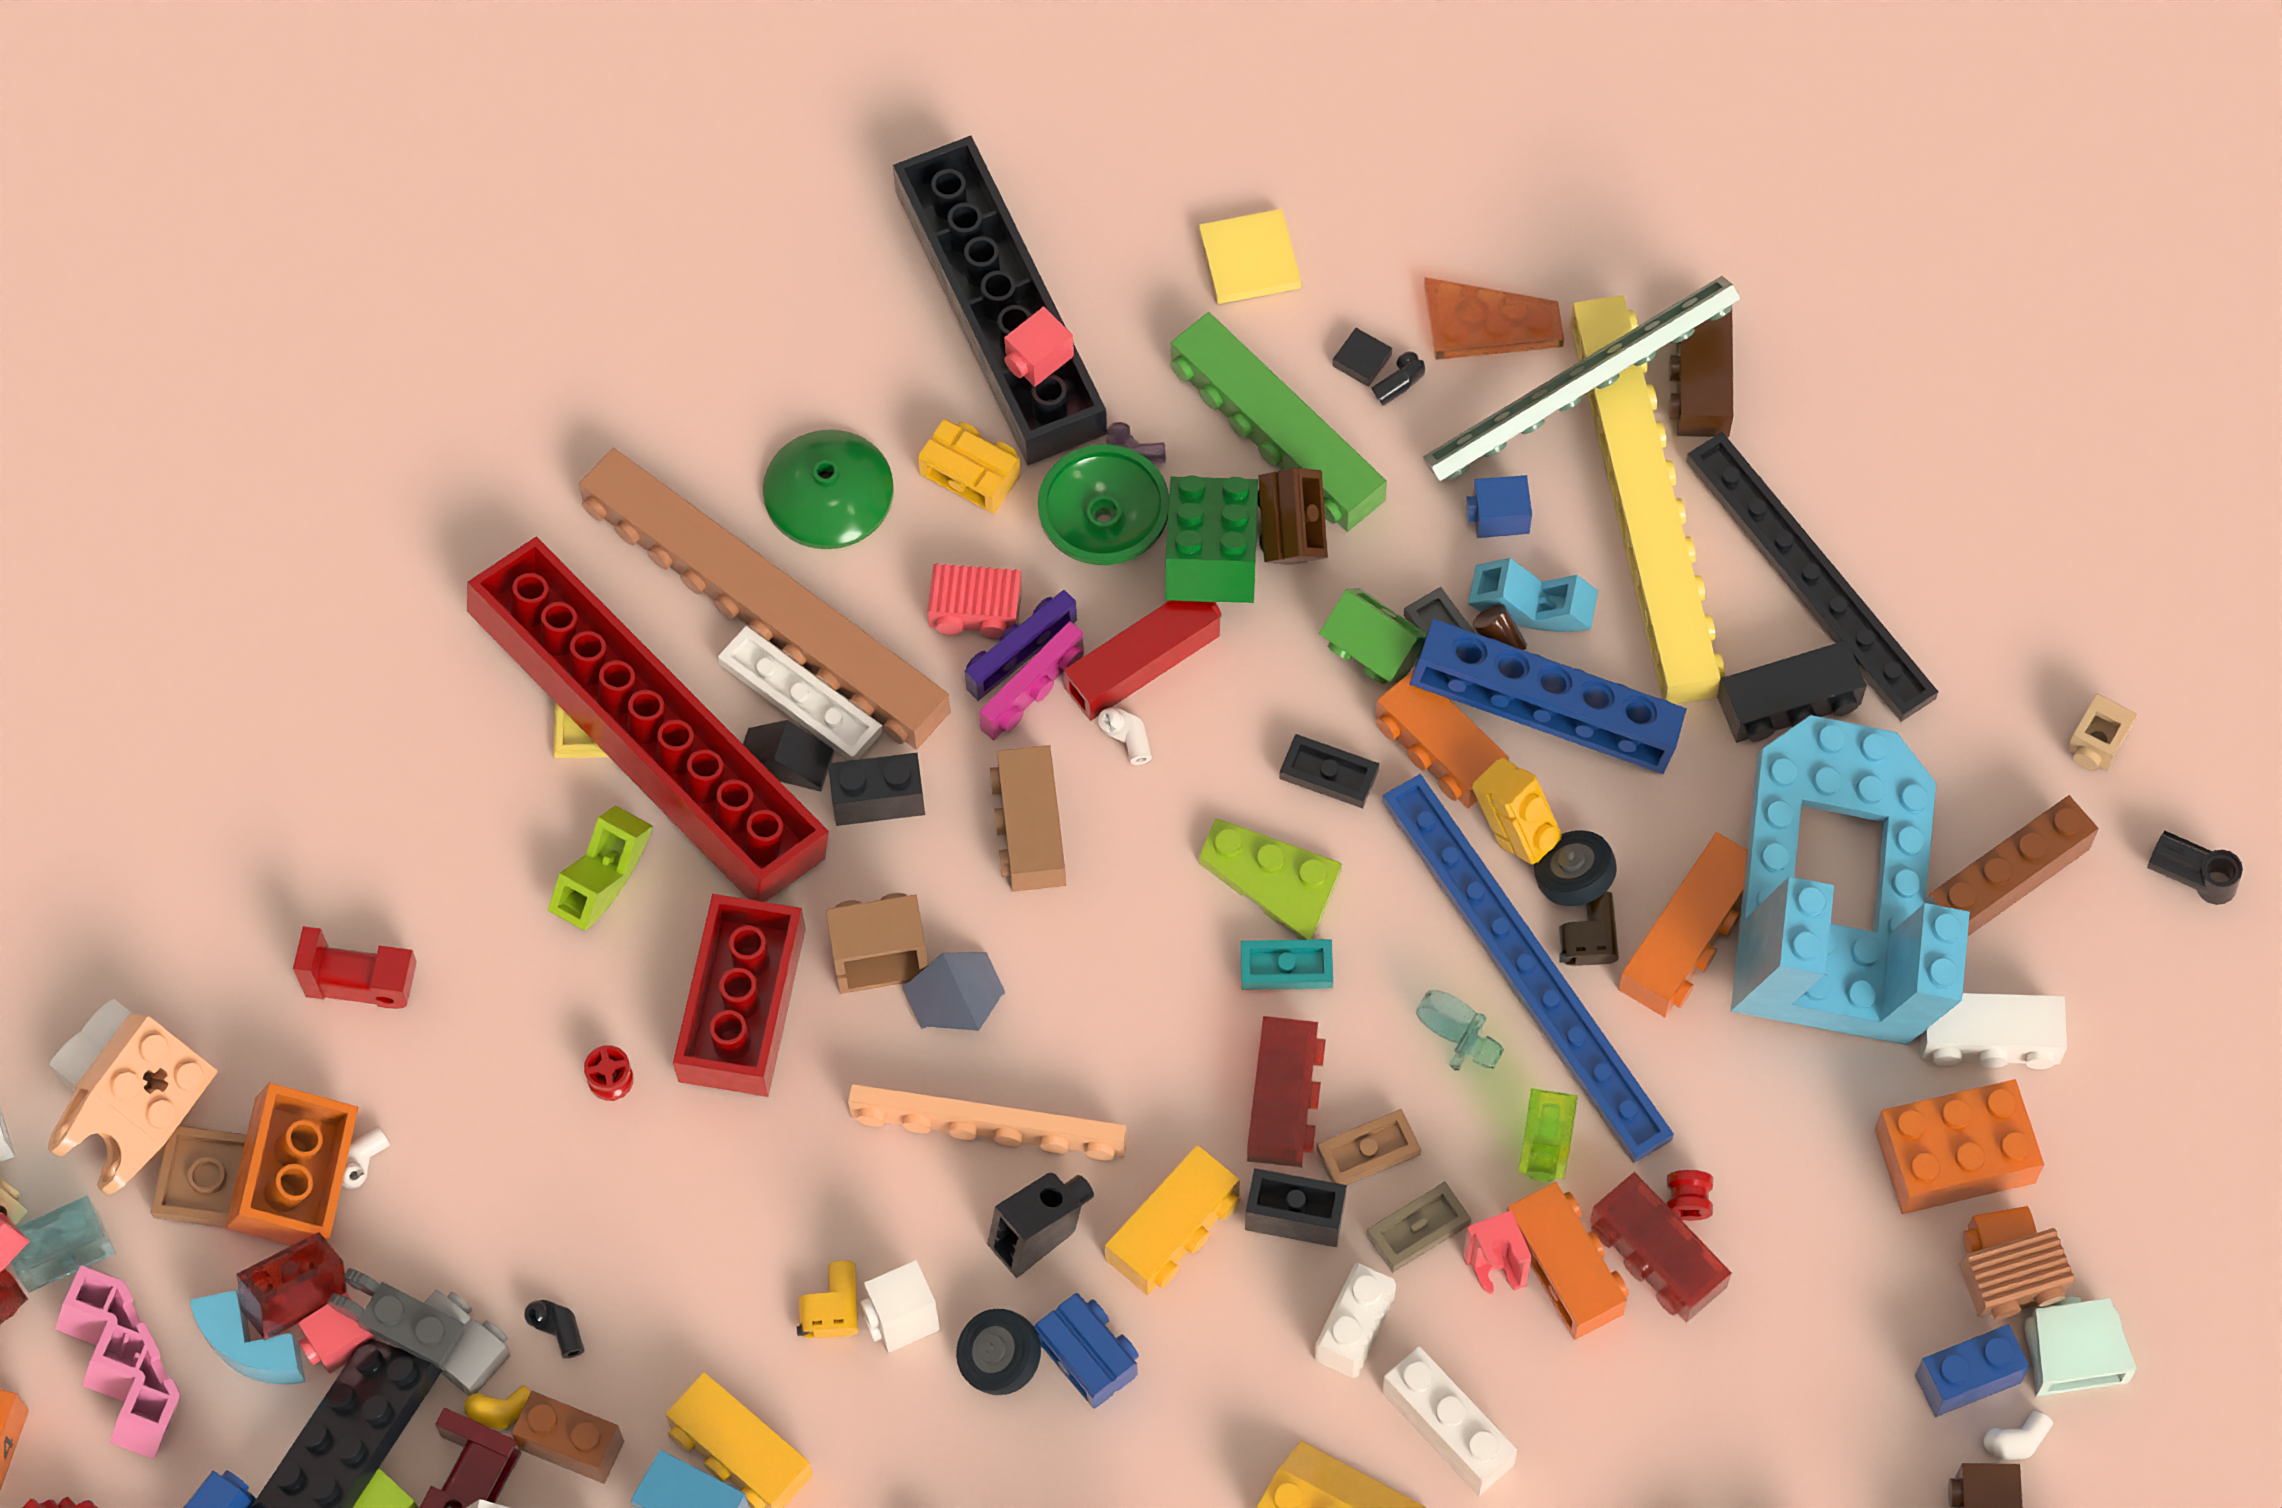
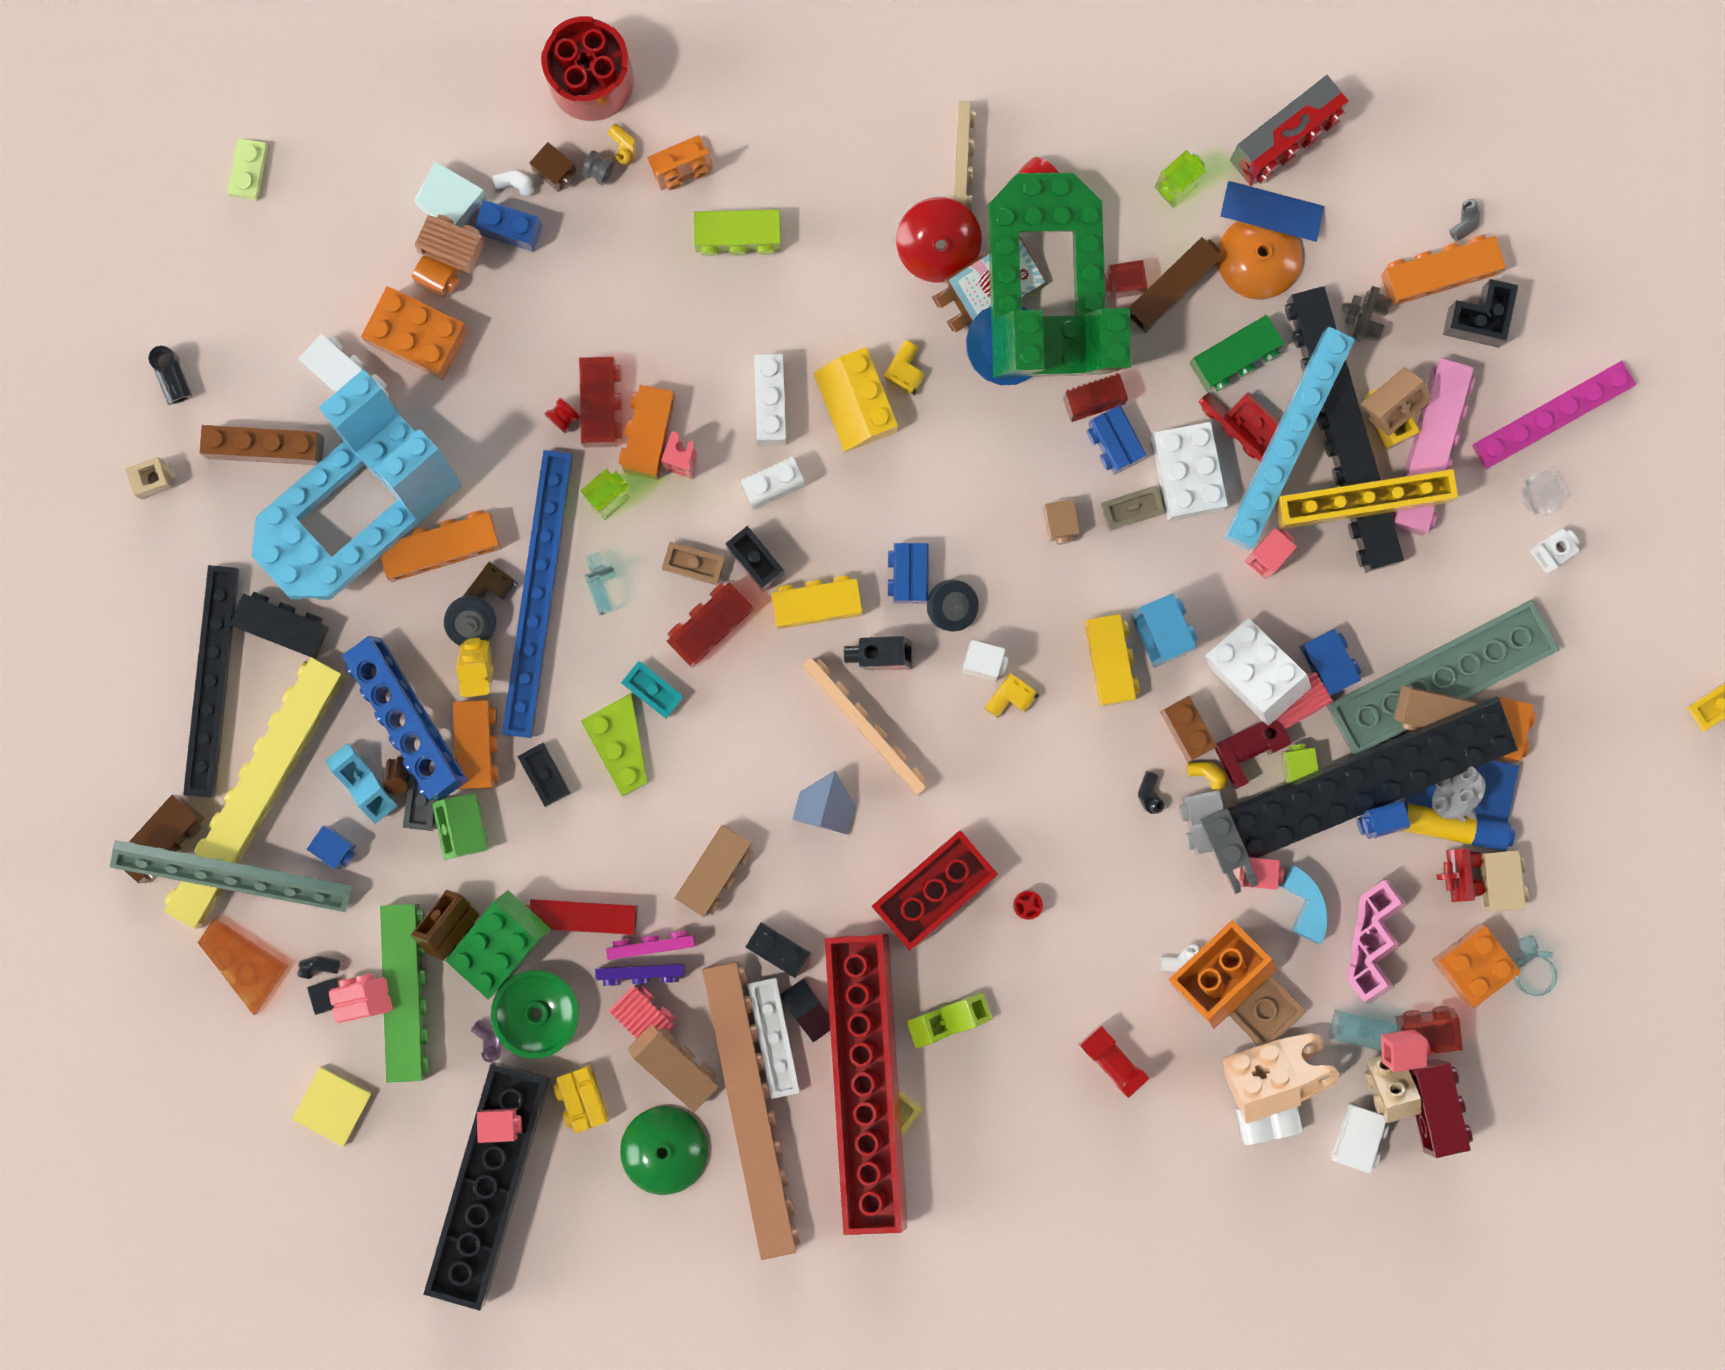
camera: 145 degrees left, 20 degrees up
(290, 1285) = (1268, 908): clear red brick -> none
(877, 942) = (845, 859): medium nougat piece -> none
(890, 565) = (673, 1066): none -> medium nougat brick
(1128, 730) = (623, 881): white arm -> none
(1317, 370) = (360, 998): none -> coral brick
(1418, 1226) = (702, 506): dark tan plate -> none

